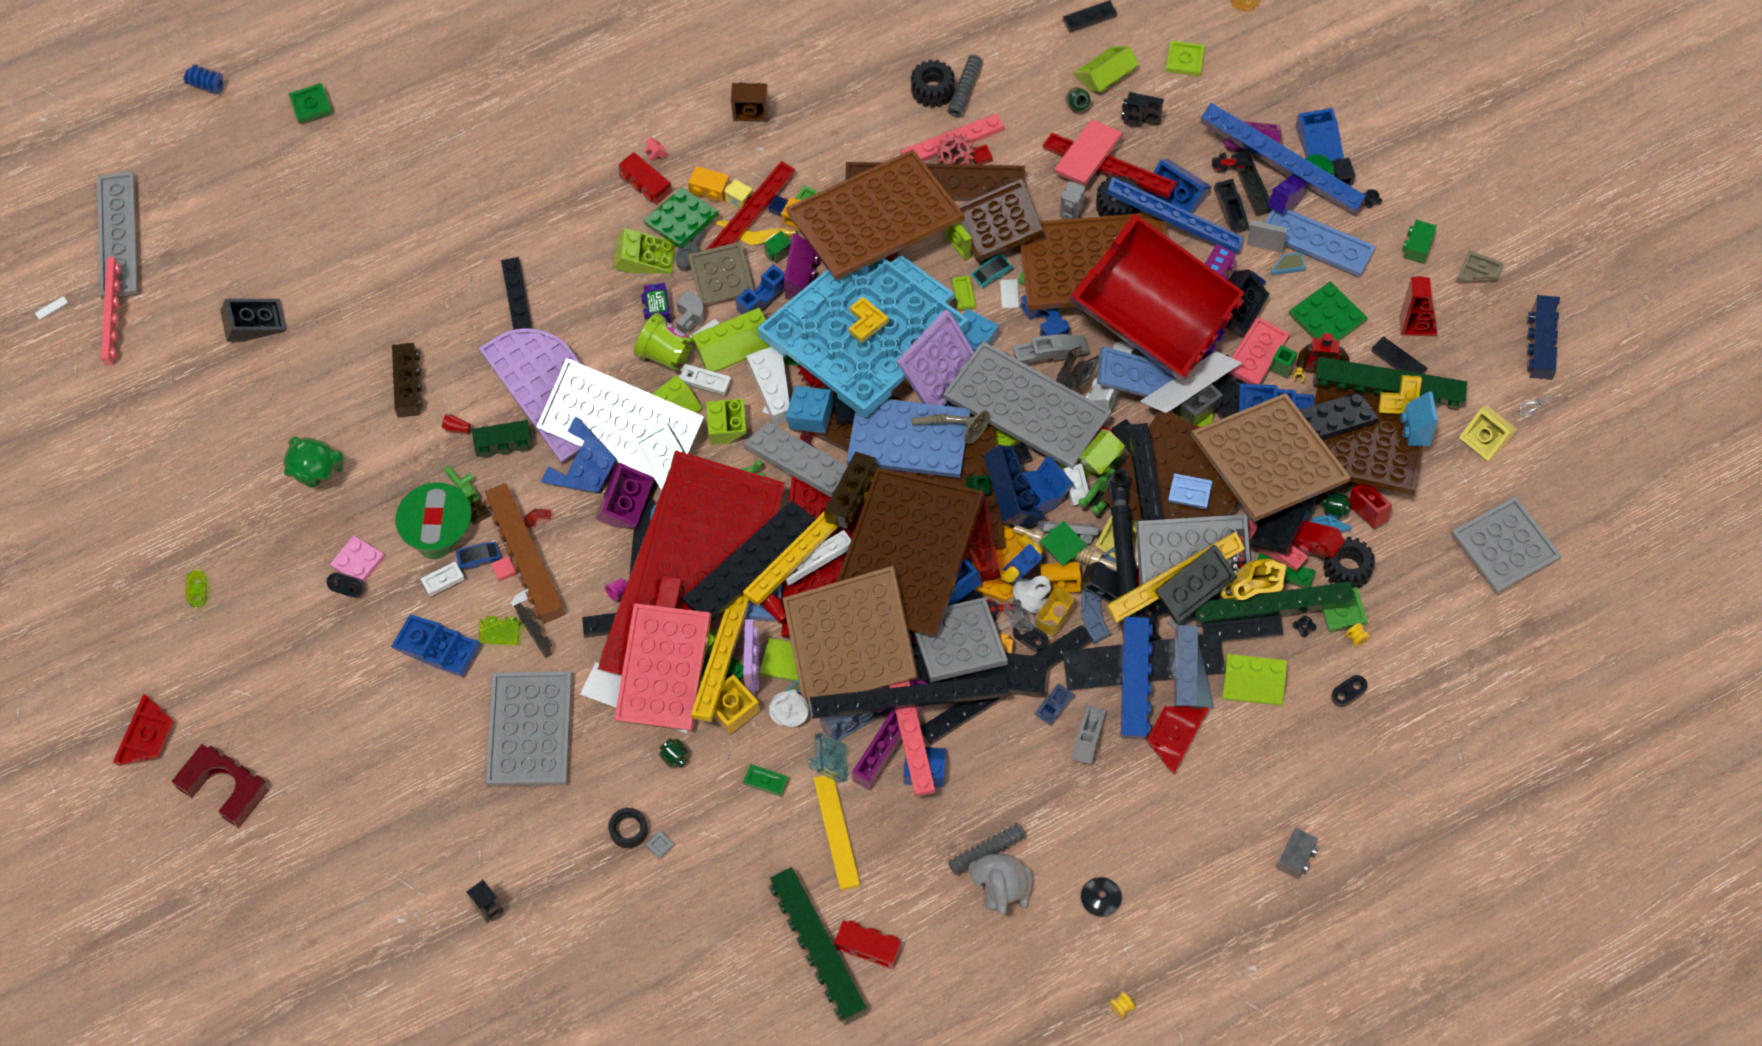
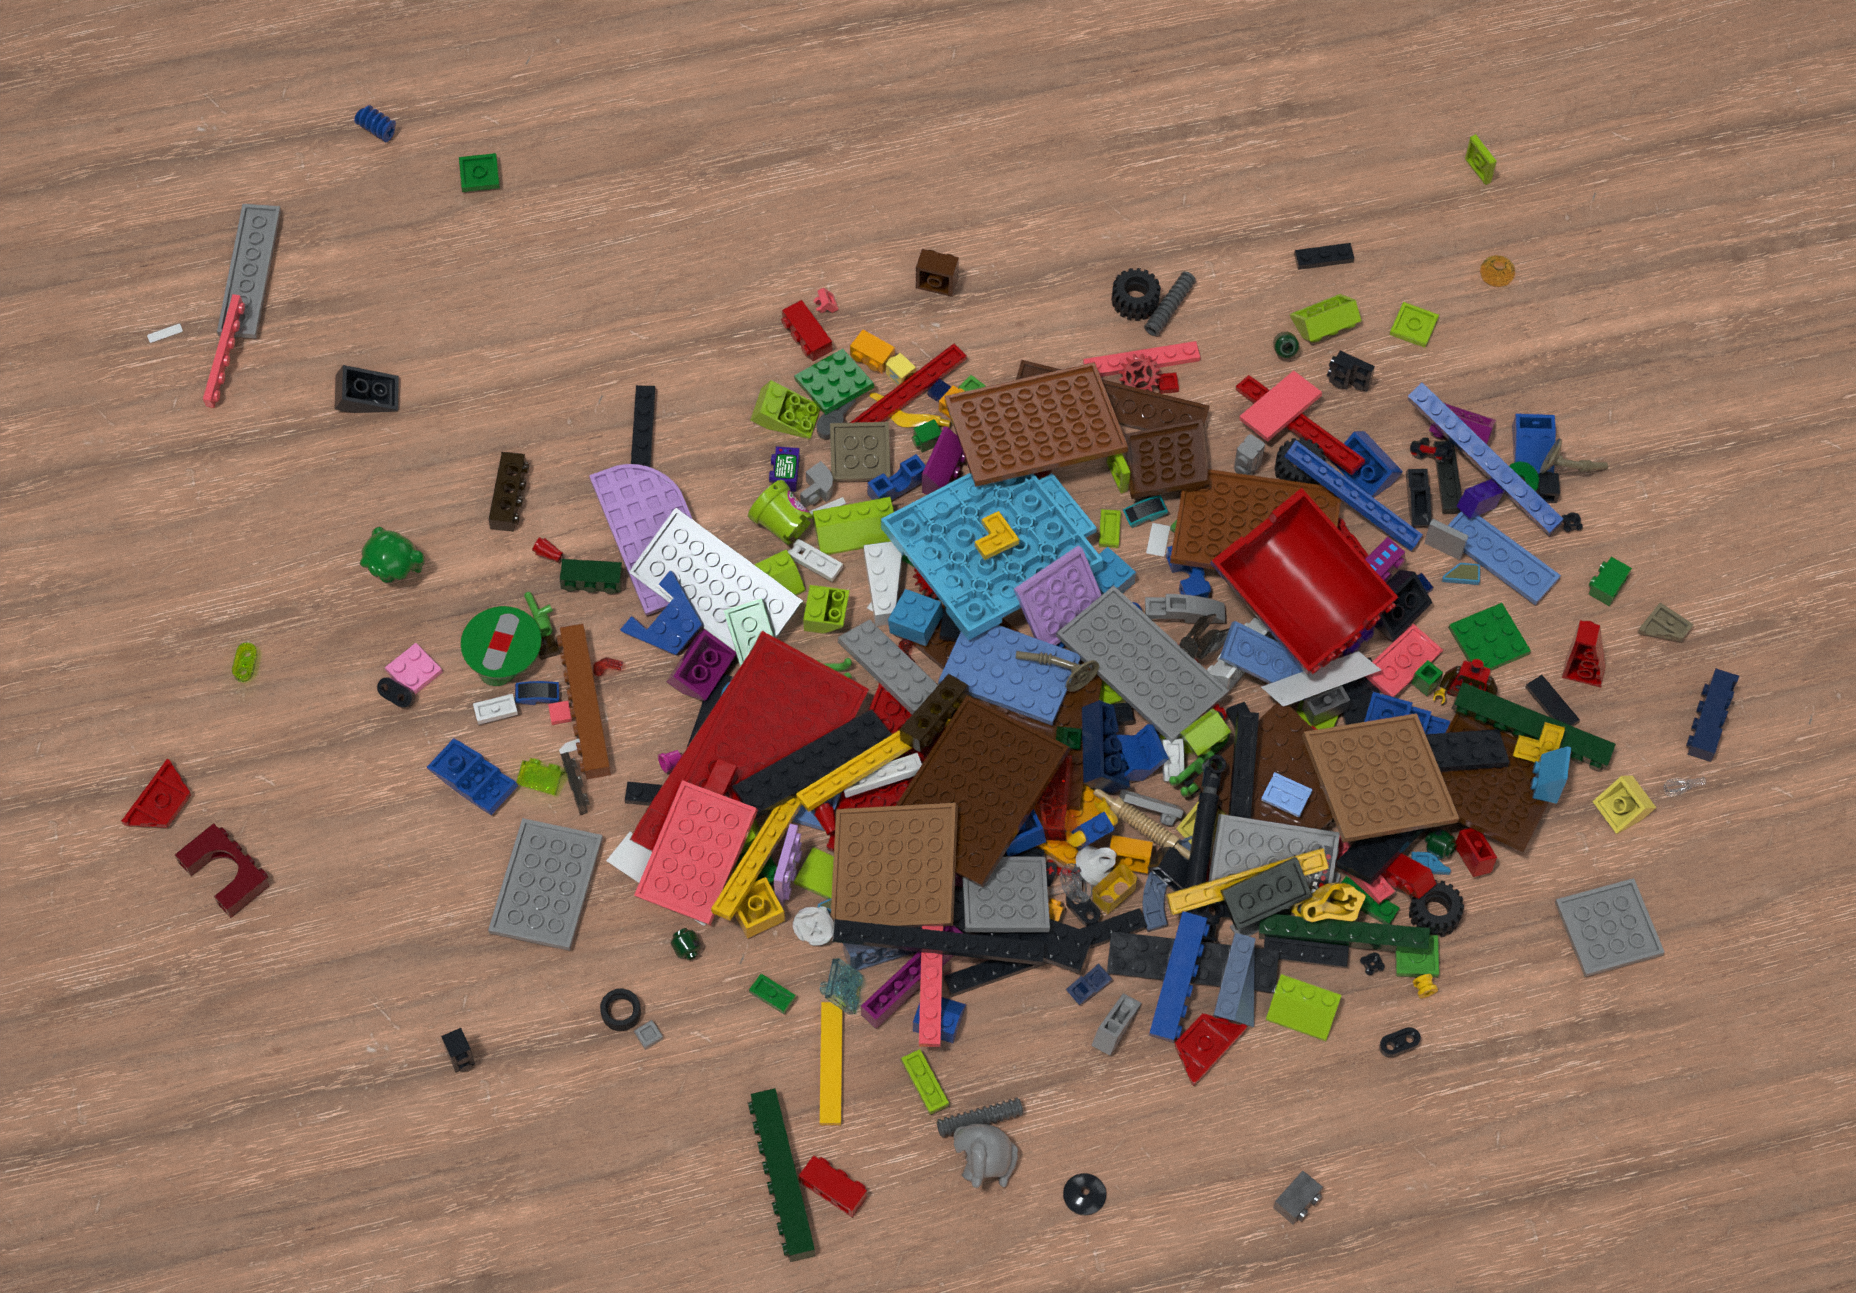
camera: 10 degrees right, 0 degrees up
(927, 828) = (924, 1082): none -> lime plate
(1063, 543) = (1140, 818): green piece -> none
(1344, 144) = (1556, 459): none -> dark tan dish

